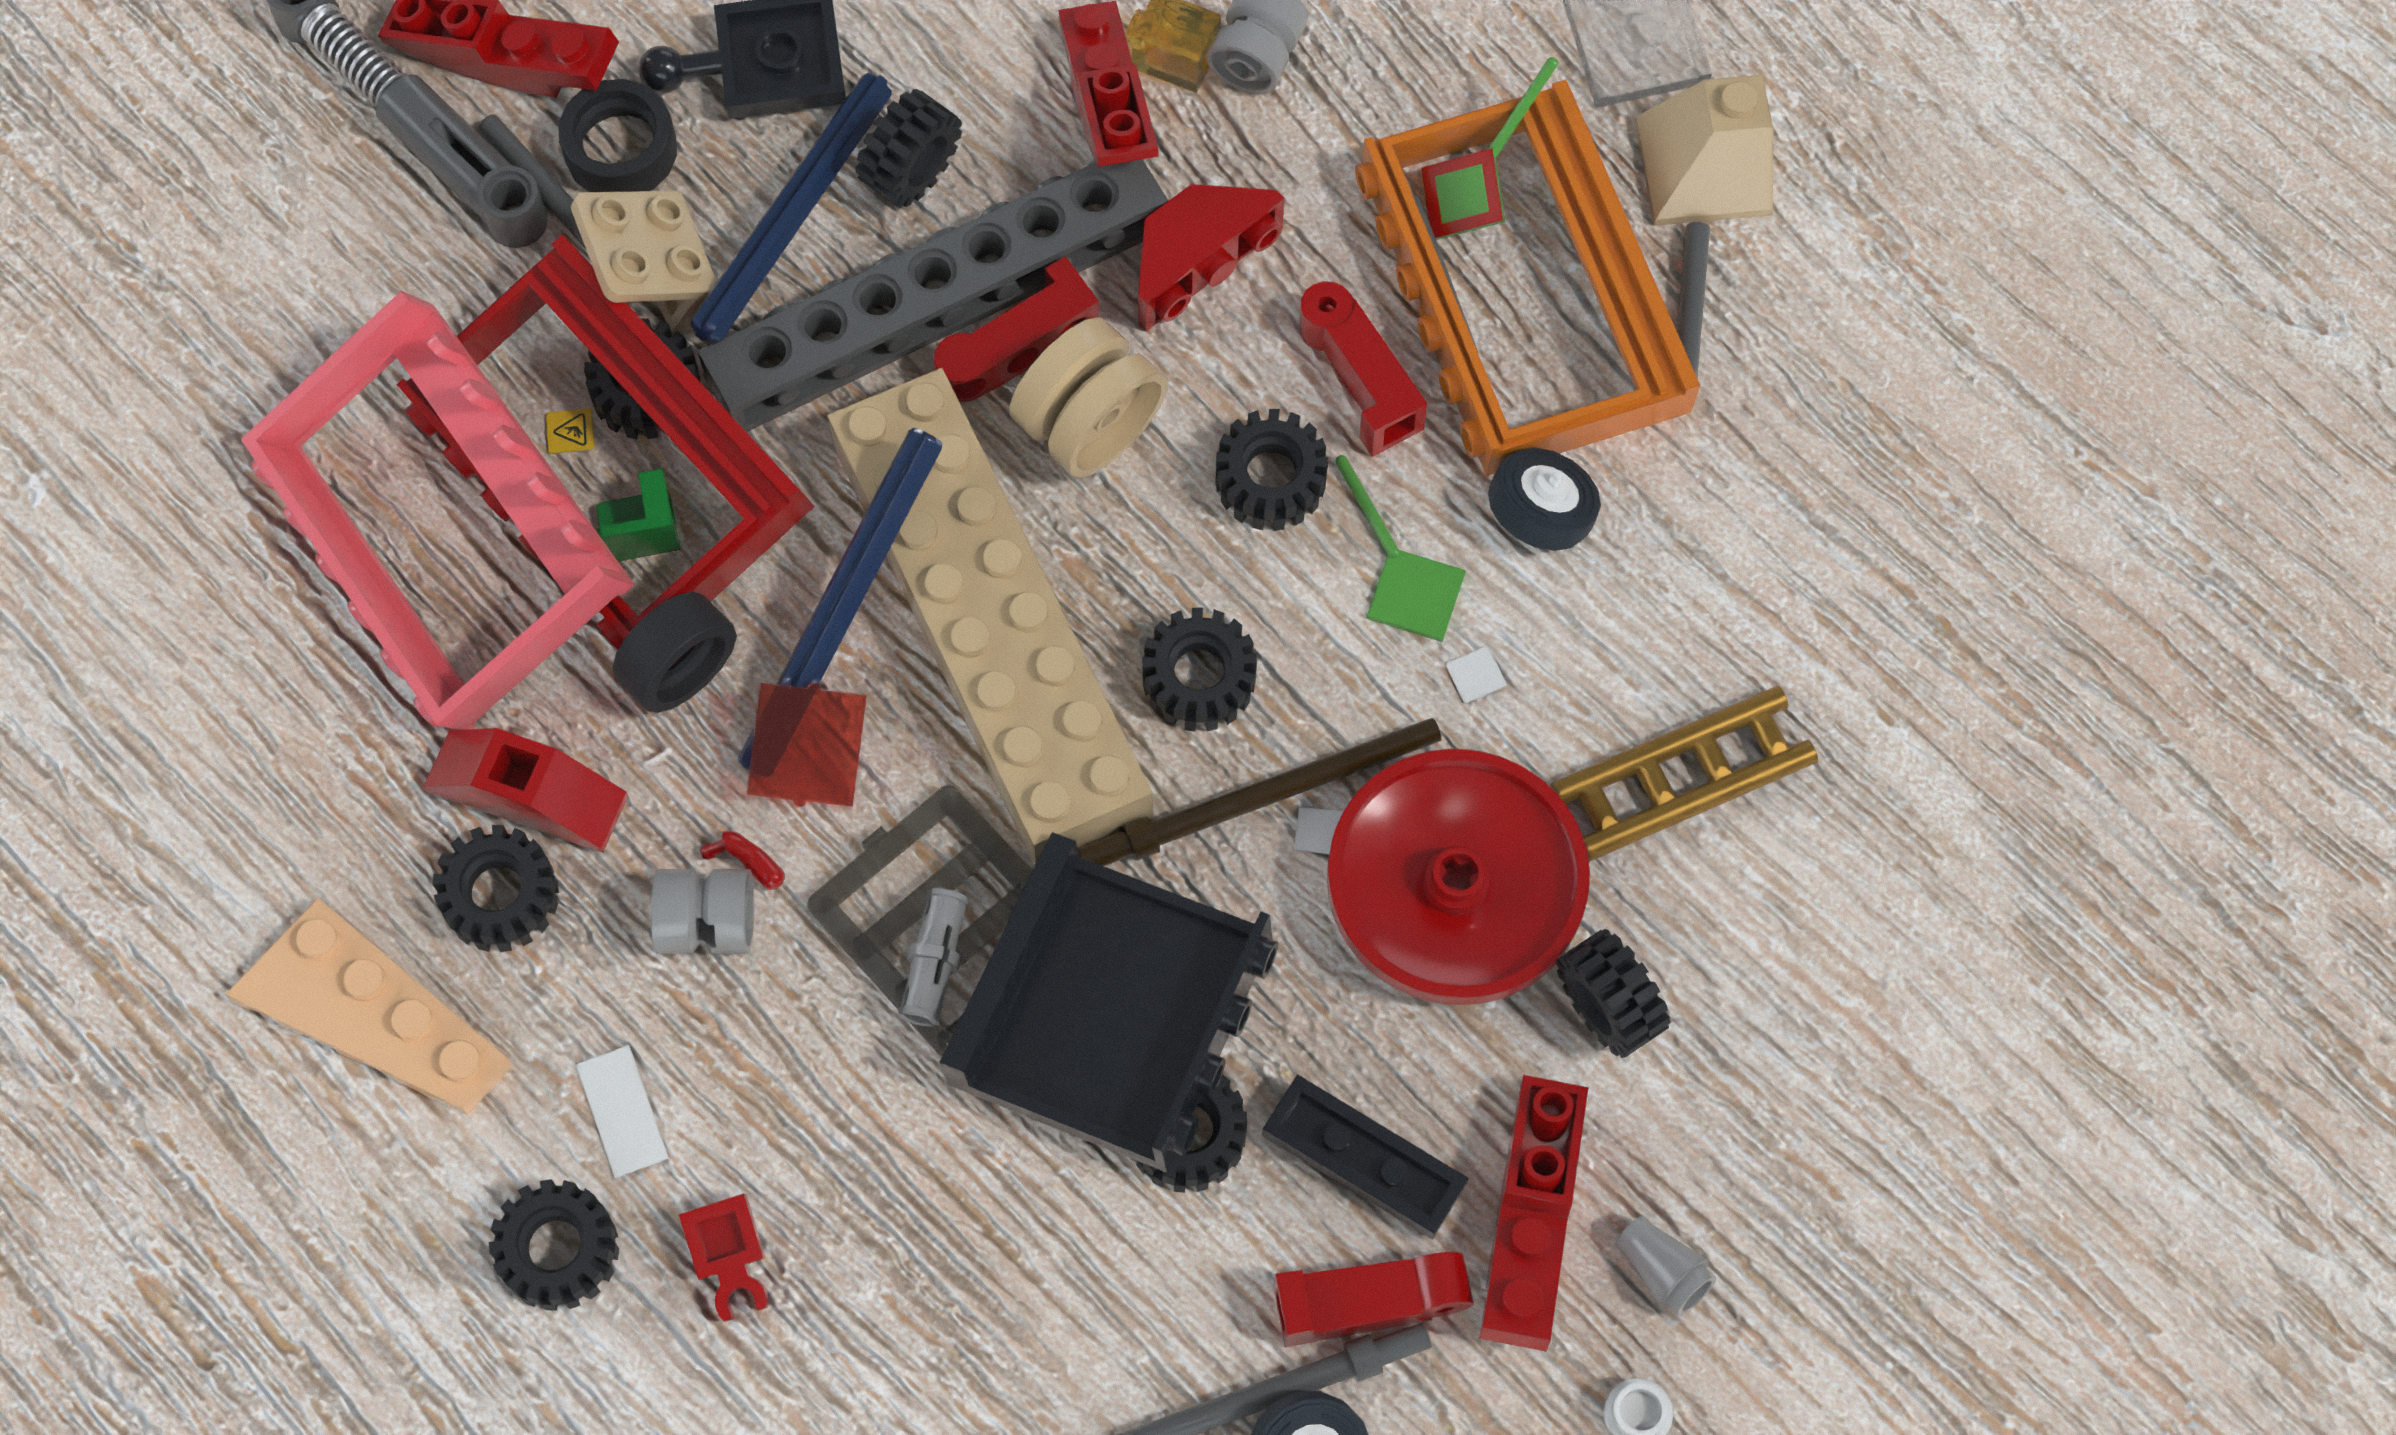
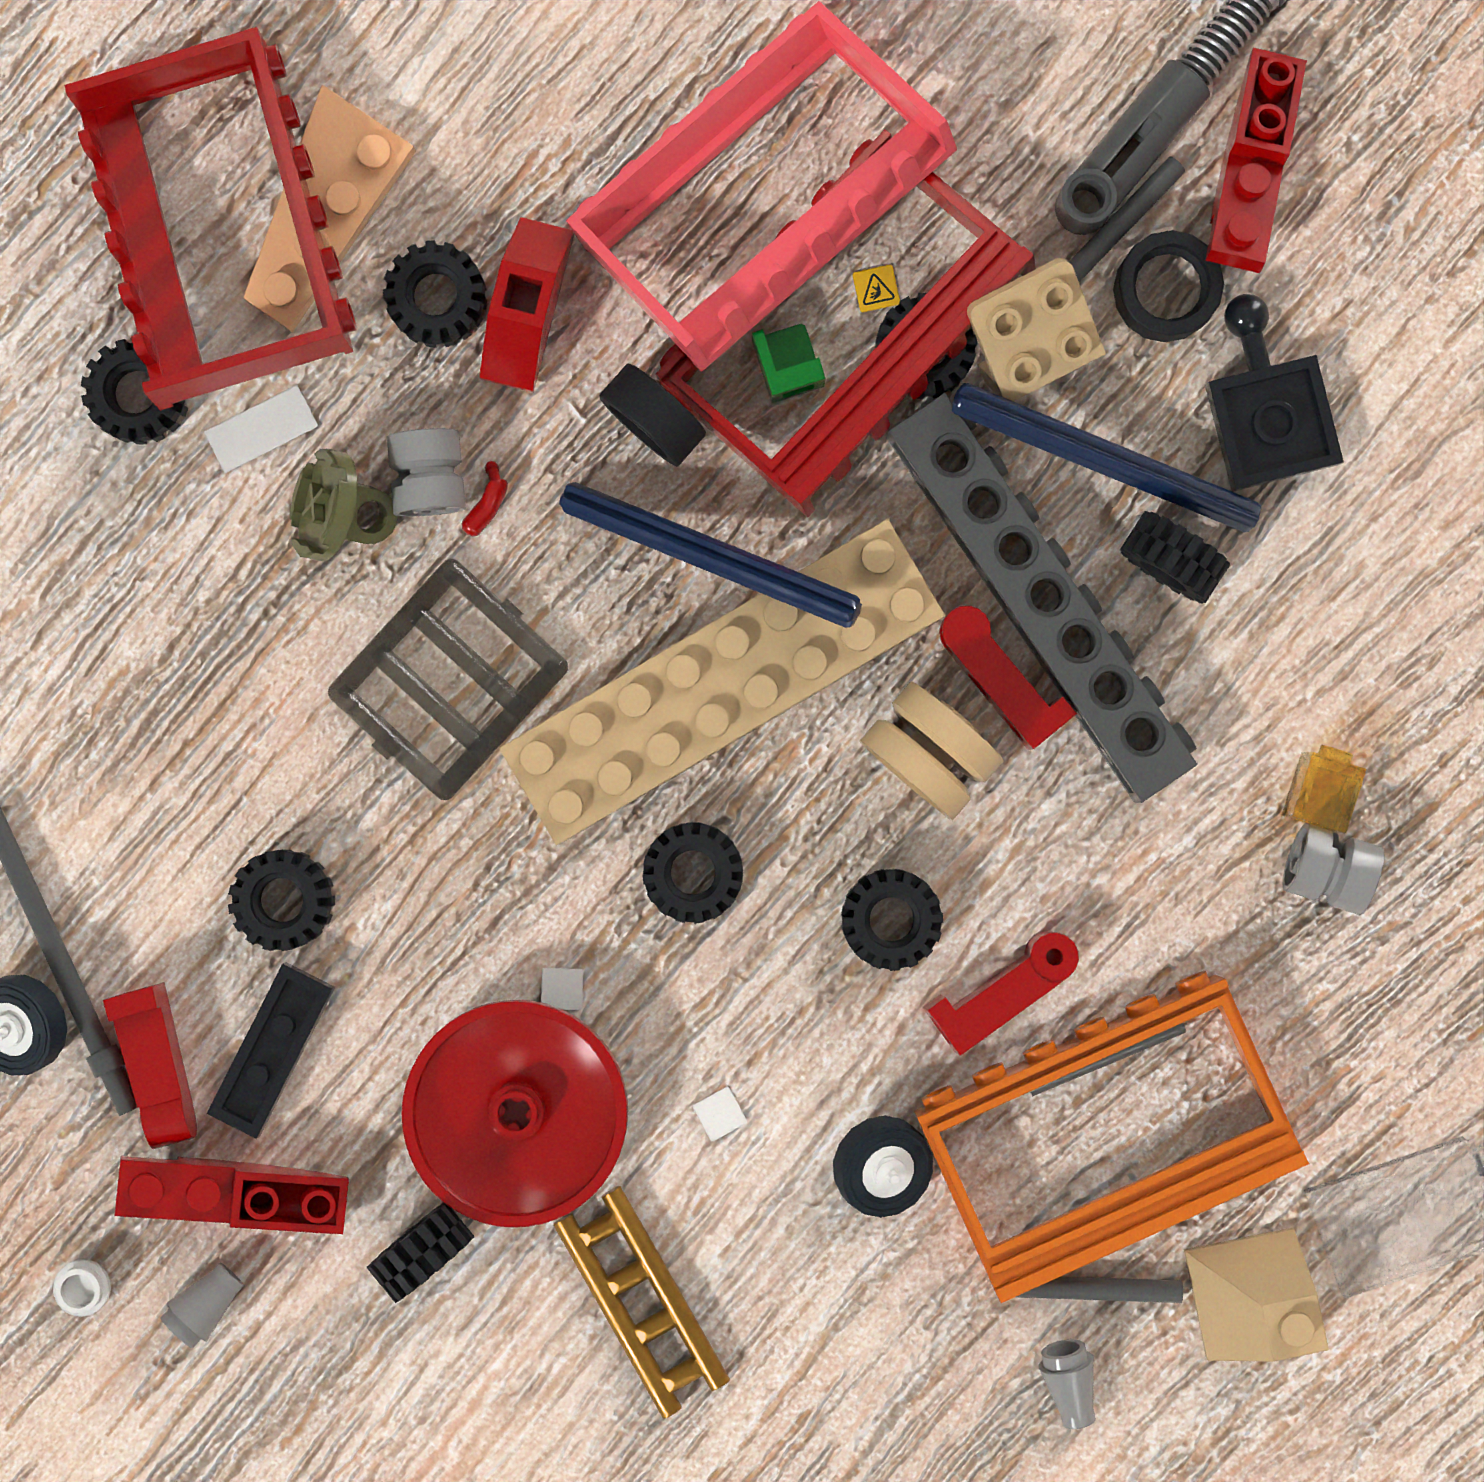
camera: 85 degrees right, 20 degrees up
(372, 1213) = (139, 230): none -> red window
(723, 1243) = (147, 532): red plate -> none
(726, 1018) = (328, 504): none -> olive tile
(806, 744) = (585, 540): clear red piece -> none
(933, 957) = (401, 672): light grey pin -> none
(1106, 85) = (1257, 734): red slope -> none
(1108, 1007) = (367, 829): black panel -> none
(1144, 837) = (535, 839): dark brown bar -> none
(1198, 243) = (1109, 831): red slope -> none
(1412, 589) = (795, 1053): bright green piece -> none
(1466, 190) = (1193, 1075): piece -> none
(1789, 338) = (1069, 1377): none -> light grey cone

